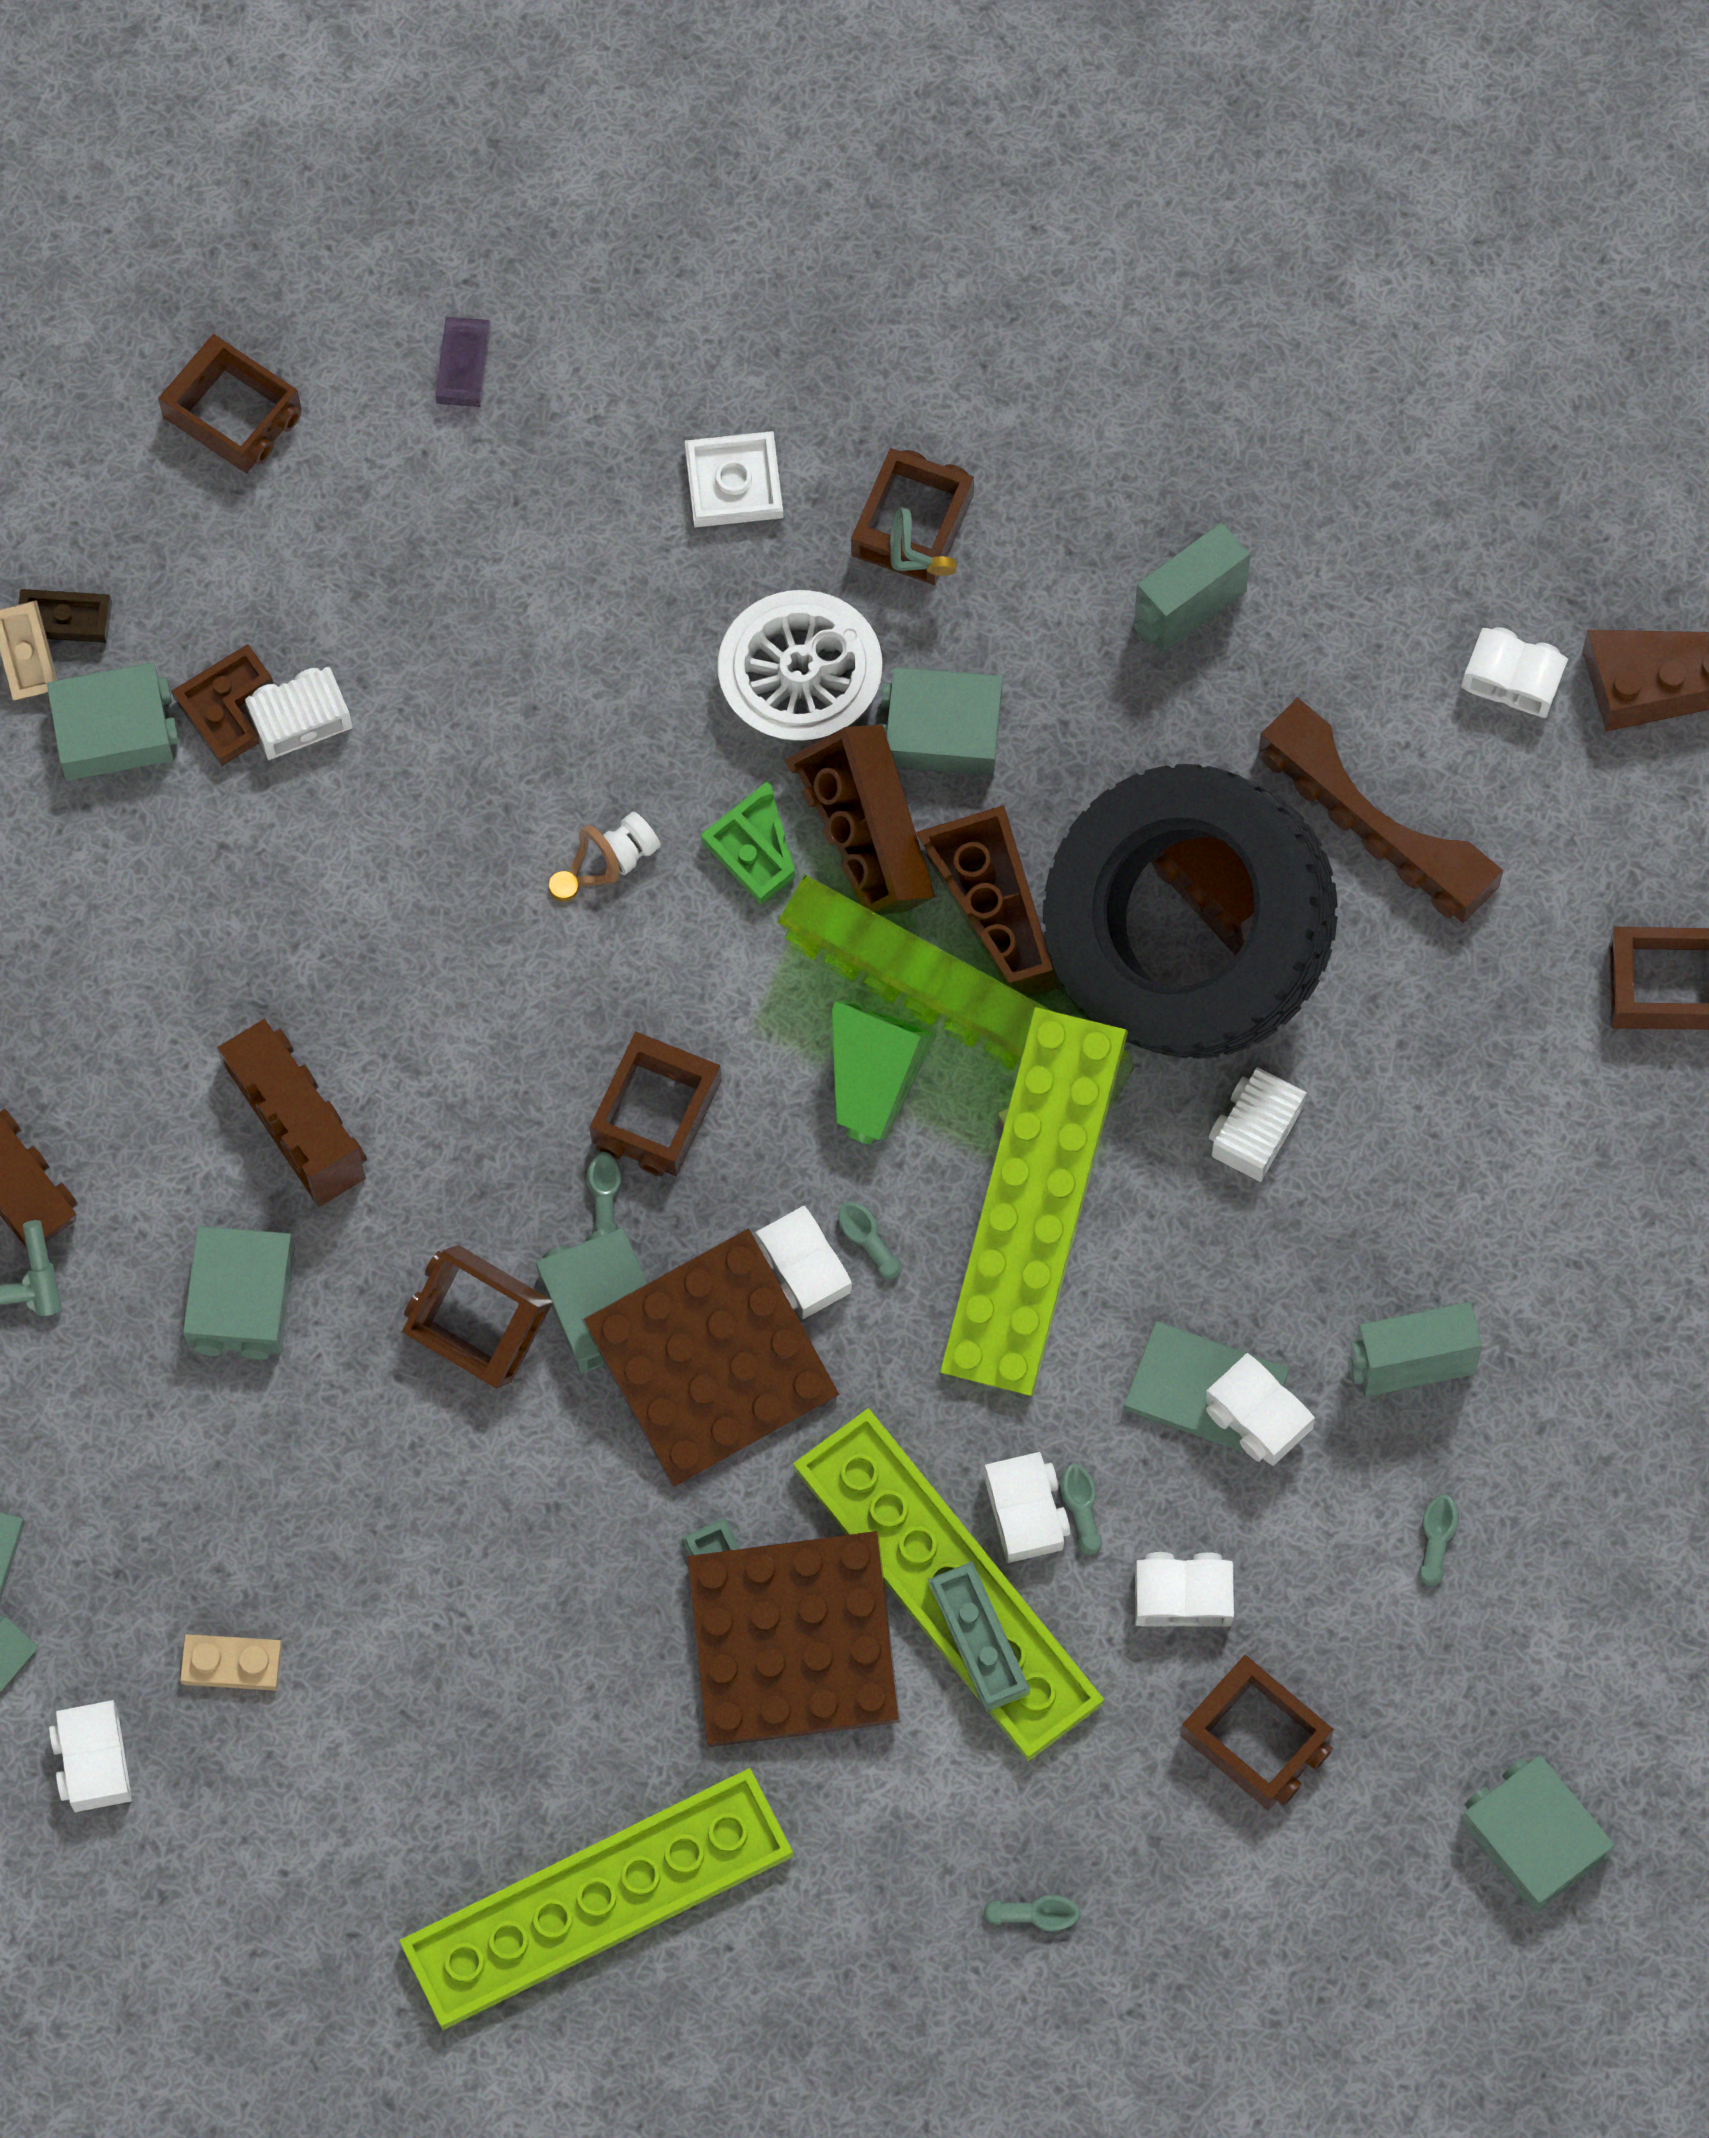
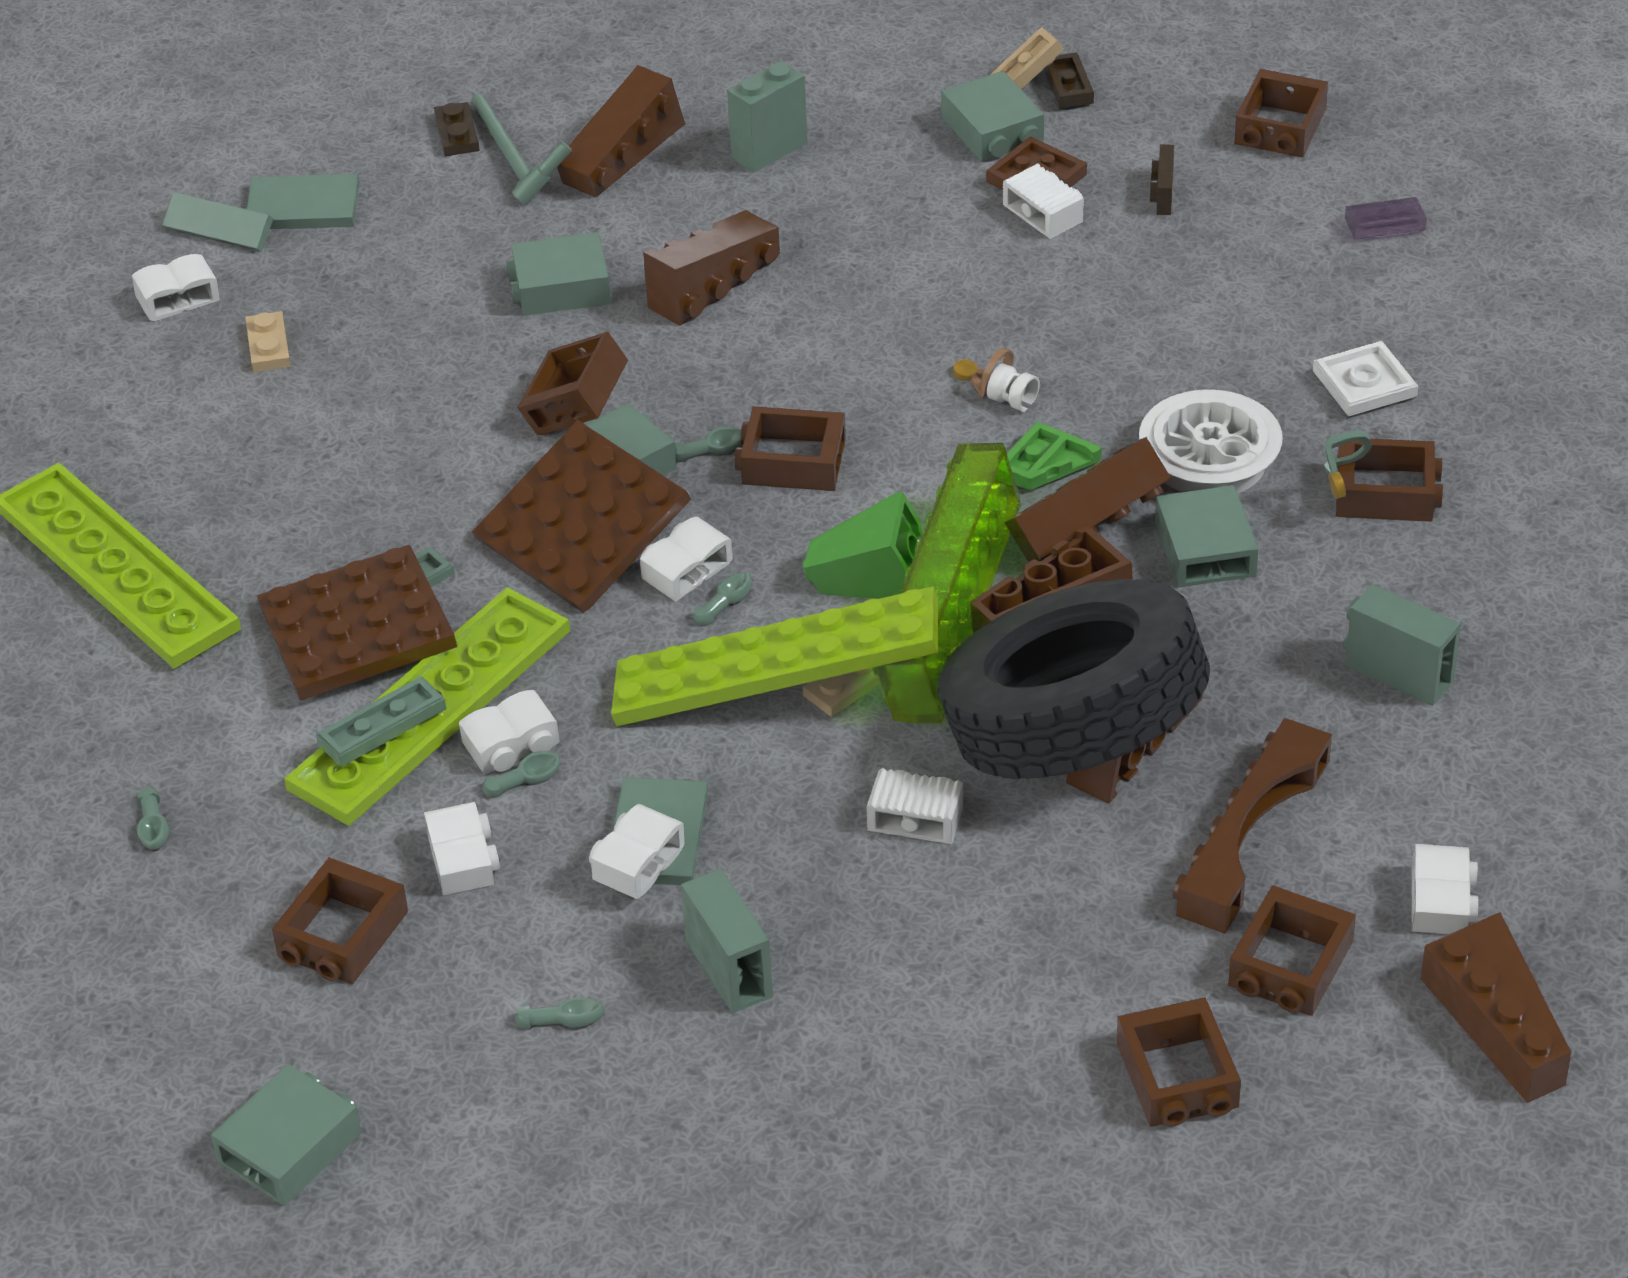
camera: 75 degrees right, 25 degrees down
(48, 975) = (767, 116): none -> sand green brick
(324, 575) = (1163, 172): none -> dark brown plate
(1502, 834) = (1306, 920): none -> reddish brown window

